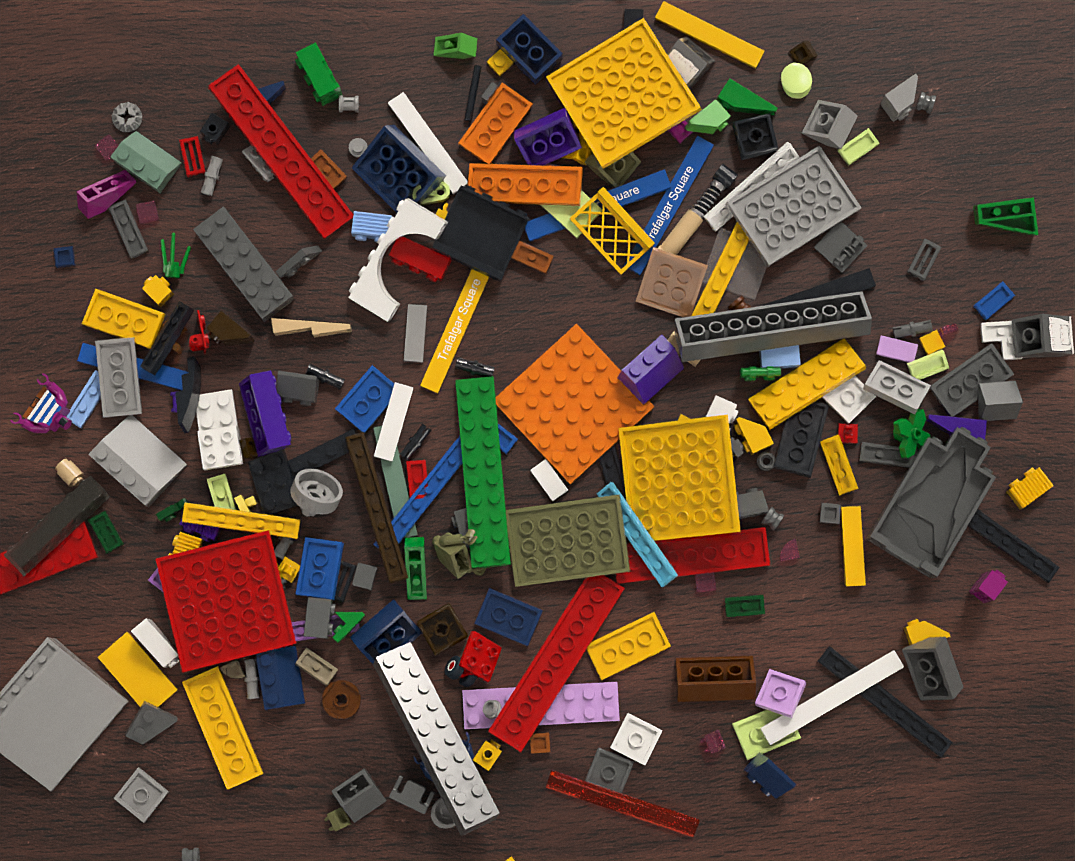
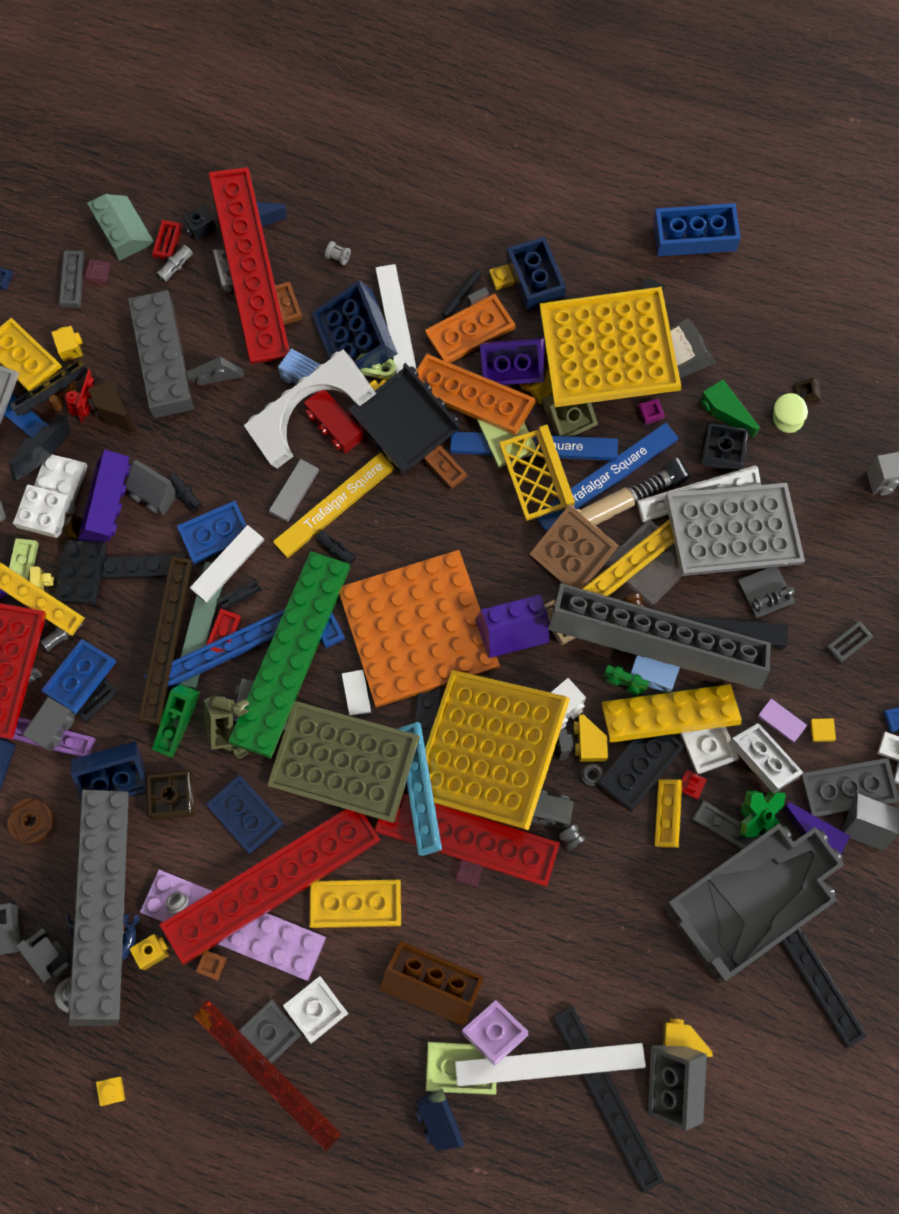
camera: 25 degrees right, 10 degrees down
(101, 195) = (62, 236): magenta slope -> none
(106, 146) = (90, 195): clear pink tile -> none
(132, 123) = (125, 188): light grey gear -> none
(173, 269) = (92, 329): green plant -> none
(289, 569) = (48, 664): yellow tile -> none
(309, 490) = (112, 596): light grey piece -> none
(316, 667) = (23, 775): dark tan plate -> none
(318, 74) = (321, 215): green wedge -> none
(319, 329) = (200, 444): tan slope -> none
(351, 619) = (80, 743): green slope -> none
(357, 147) = (325, 294): light grey plate -> none
(365, 576) = (120, 705): dark grey panel -> none
(455, 46) = (466, 243): bright green slope -> none
(477, 661) = (187, 844): red plate -> none
(709, 34) = (721, 336): yellow tile -> none
(710, 119) = (684, 411): slope -> none
(714, 742) = (398, 1053): clear pink tile -> none
(744, 606) = (499, 918): dark green plate -> none
(789, 551) = (575, 881): clear pink tile -> none
(830, 123) = (807, 467): light grey slope -> none
(830, 513) = (636, 860): dark grey plate -> none
(852, 546) = (645, 907): yellow slope -> none
(858, 147) = (826, 502): yellowish green tile -> none
(912, 329) = (808, 706): dark grey pin -> none
(928, 365) = (809, 751): yellowish green tile -> none
(948, 329) = (844, 723): clear pink tile -> none
(988, 586) = (779, 1019): magenta brick -> none
(1029, 488) = (867, 932): yellow brick -> none

